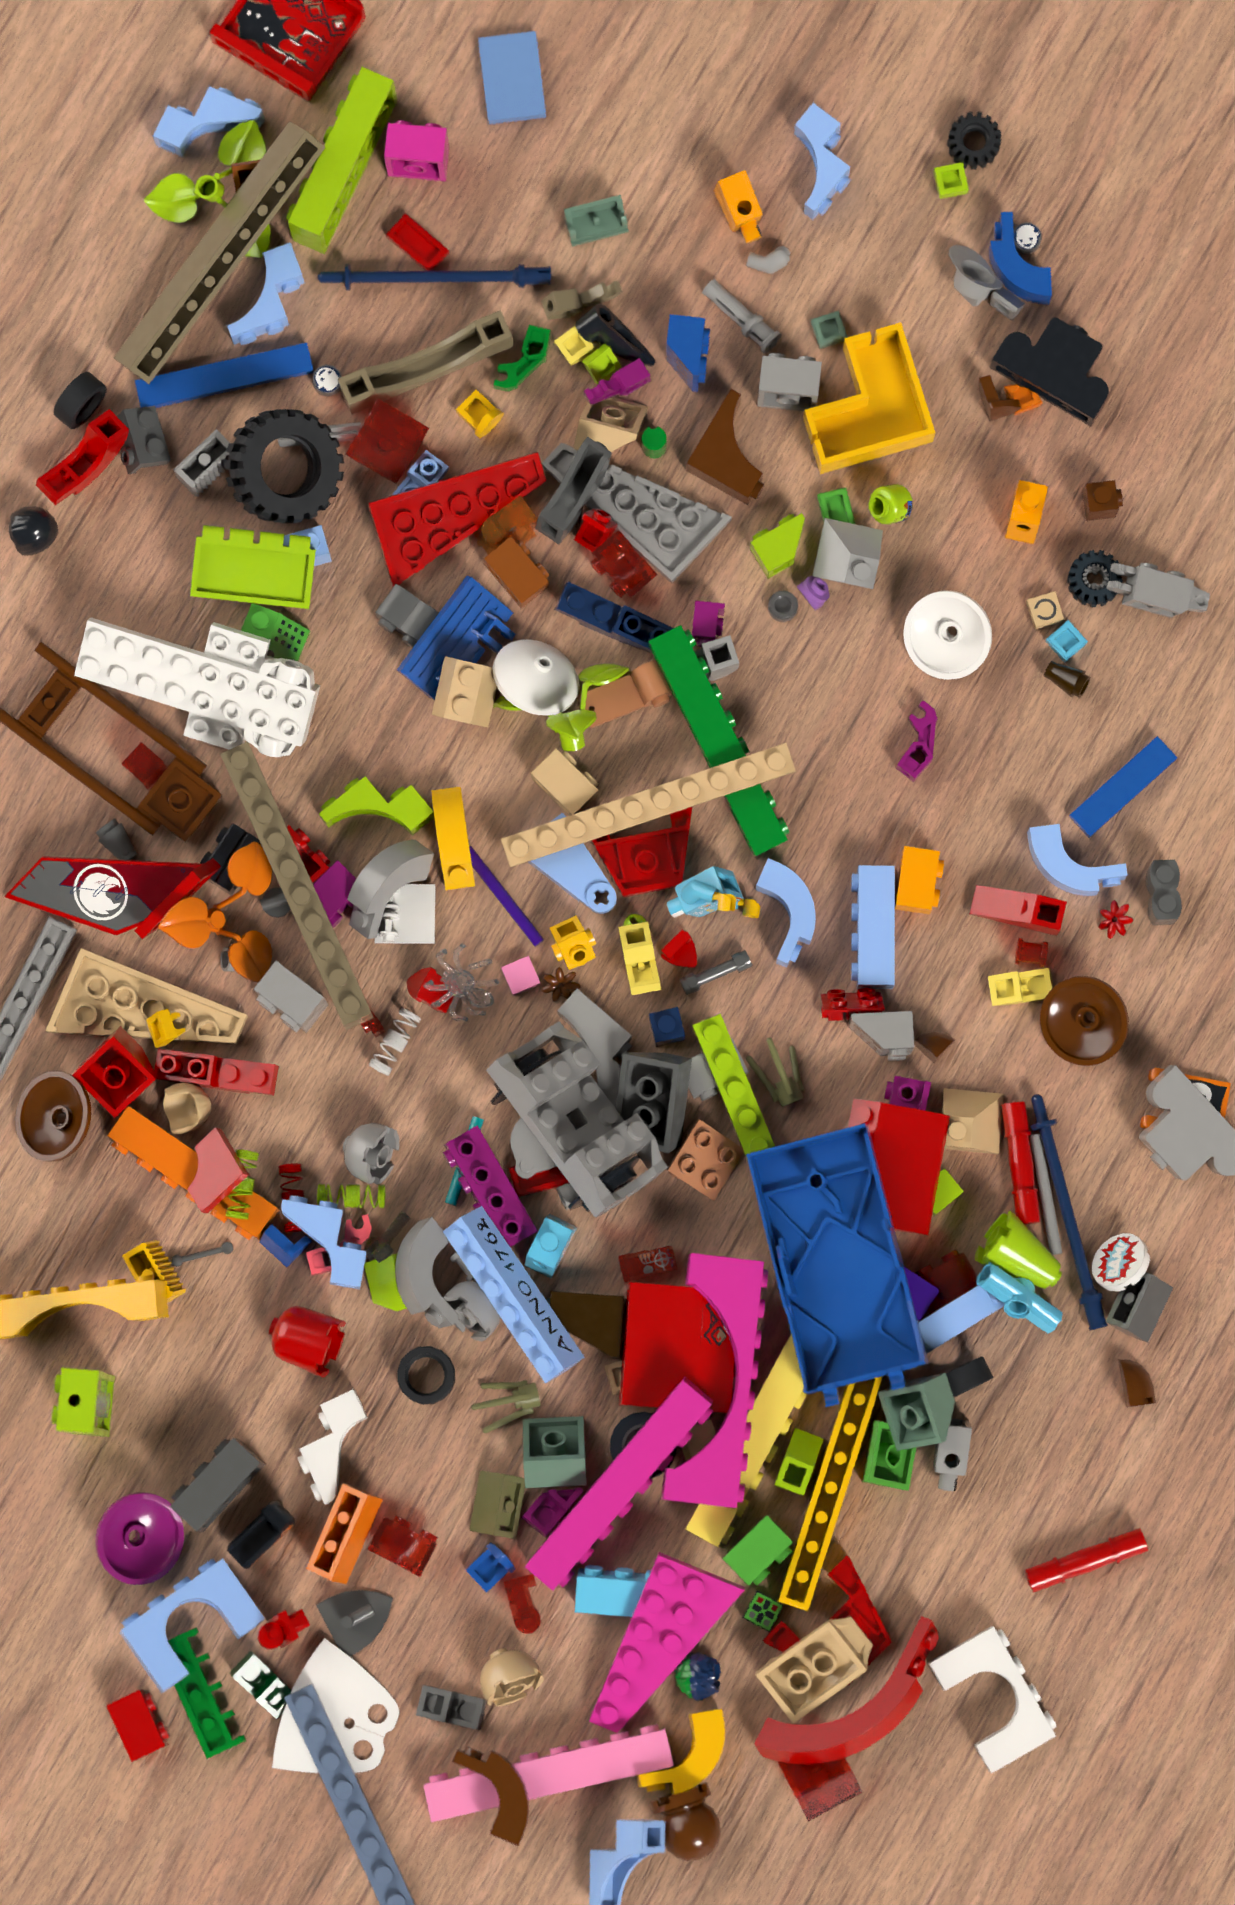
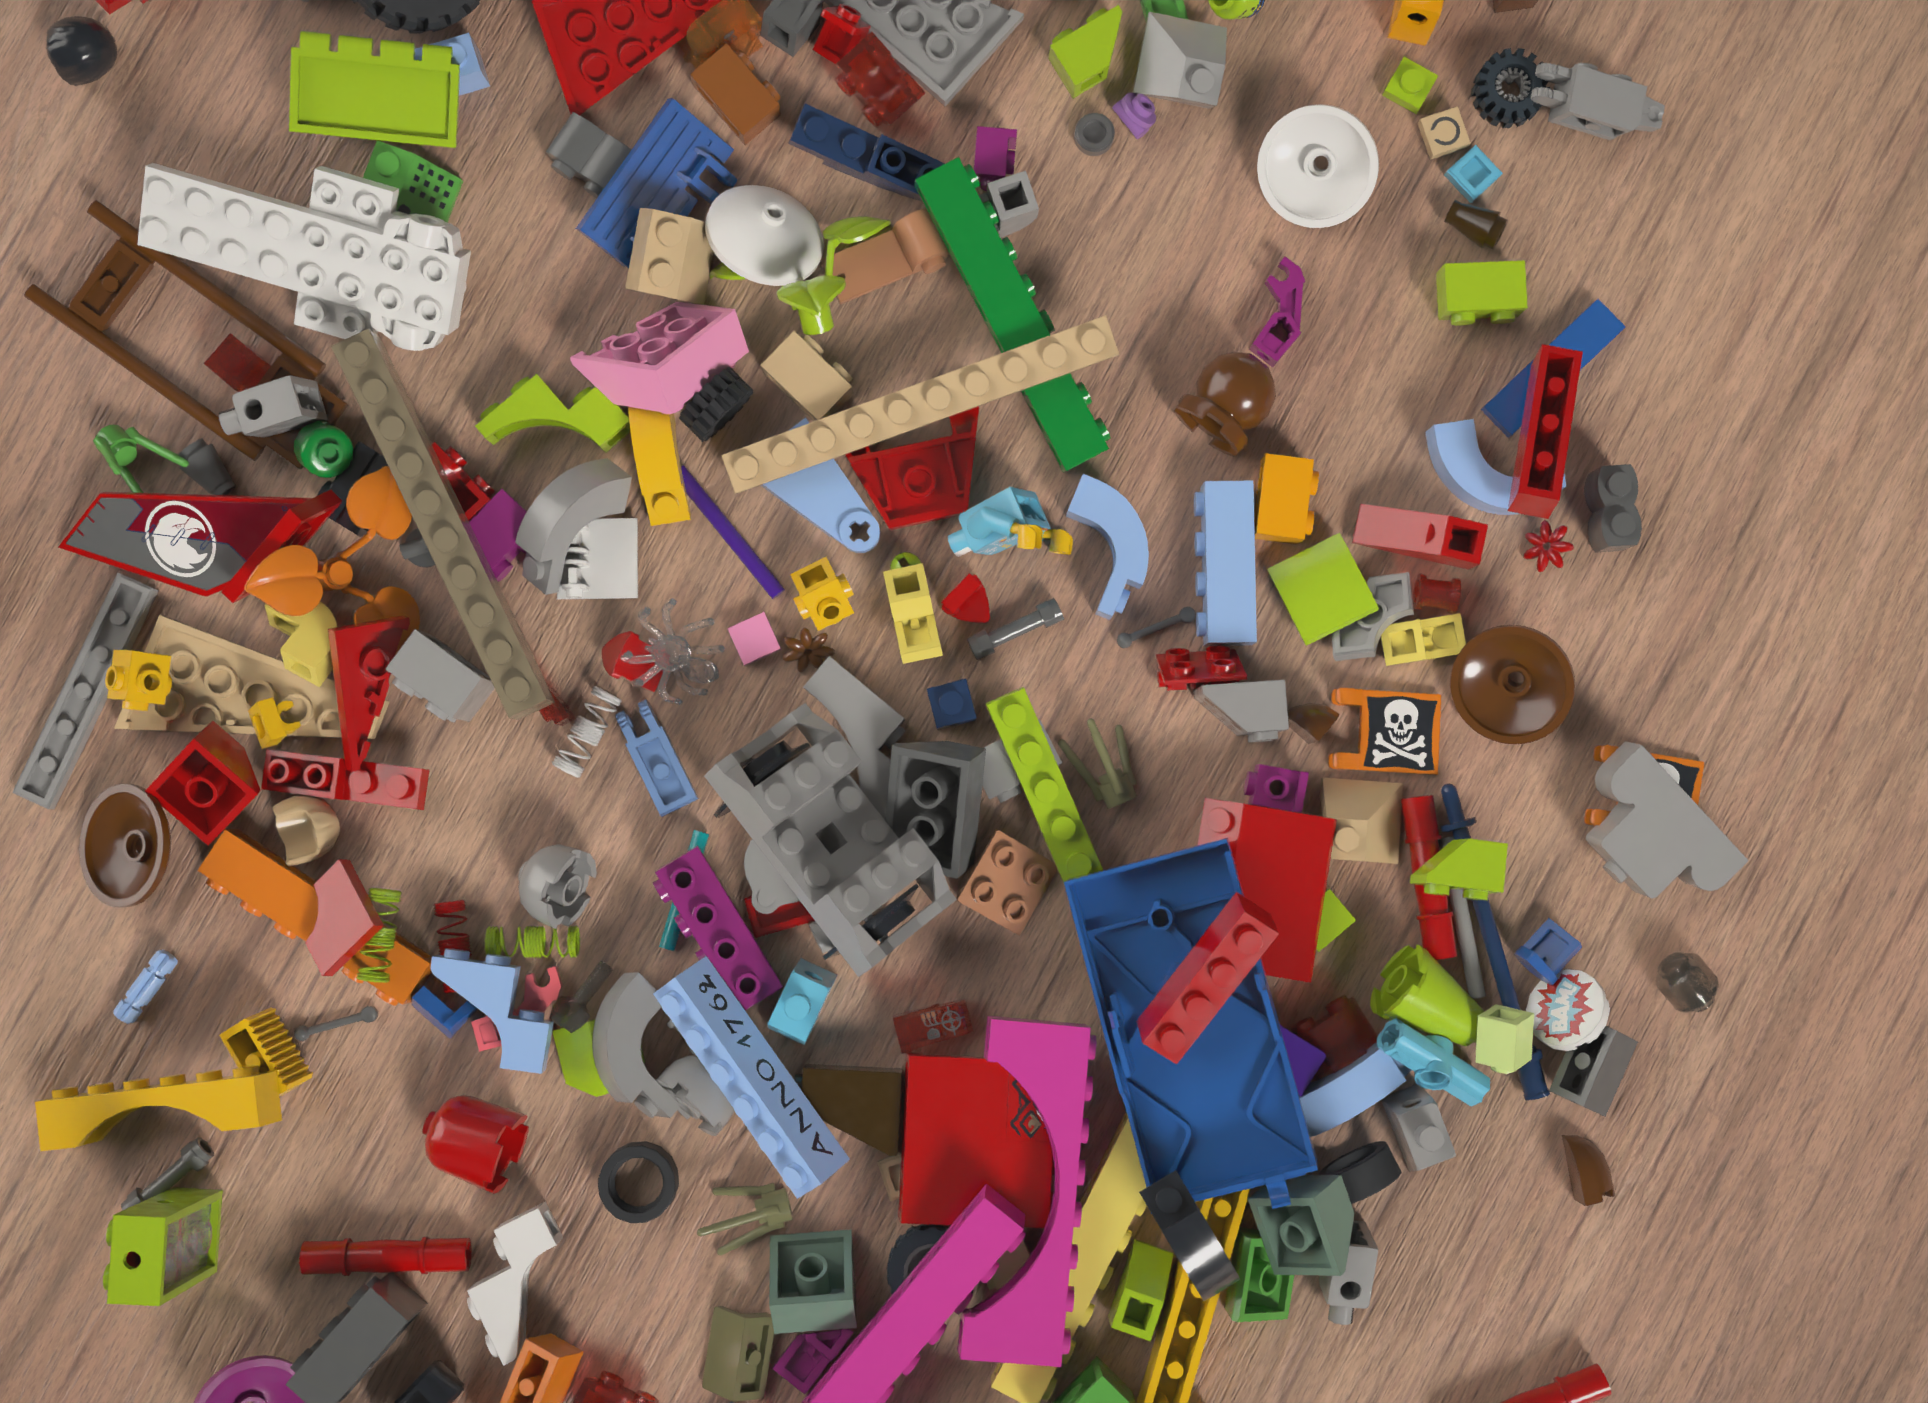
camera: 10 degrees left, 5 degrees up
(54, 825) = (120, 450): none -> bright green plant
(62, 1223) = (145, 986): none -> light blue axle
(69, 993) = (138, 679): none -> yellow brick
(97, 1348) = (193, 1156): none -> dark grey bar
(185, 796) = (274, 408): none -> light grey torso
(195, 968) = (308, 647): none -> light yellow brick
(207, 828) = (323, 449): none -> green head
(233, 993) = (361, 678): none -> red wing
(236, 1425) = (385, 1256): none -> red piece
(447, 1066) = (657, 762): none -> medium blue hinge
(461, 766) = (665, 357): none -> bright pink wedge
(497, 801) = (716, 404): none -> black tyre
(833, 1412) = (1189, 1235): none -> black arch
(843, 965) = (1185, 615): none -> dark grey hinge
(847, 1223) = (1206, 978): none -> red brick
(879, 803) = (1231, 397): none -> reddish brown tile
(945, 947) = (1323, 589): none -> lime slope
(972, 979) = (1394, 601): none -> light grey tile
(998, 1055) = (1395, 731): none -> flag
(1008, 1350) = (1418, 1128): none -> light grey torso
(1020, 574) = (1410, 85): none -> lime plate
(1045, 1153) = (1465, 865): none -> lime slope
(1069, 729) = (1481, 291): none -> lime brick
(1071, 1281) = (1504, 1038): none -> yellowish green brick
(1109, 834) = (1545, 431): none -> red brick
(1109, 1220) = (1548, 951): none -> blue tile
(1212, 1245) = (1687, 982): none -> clear smoke head

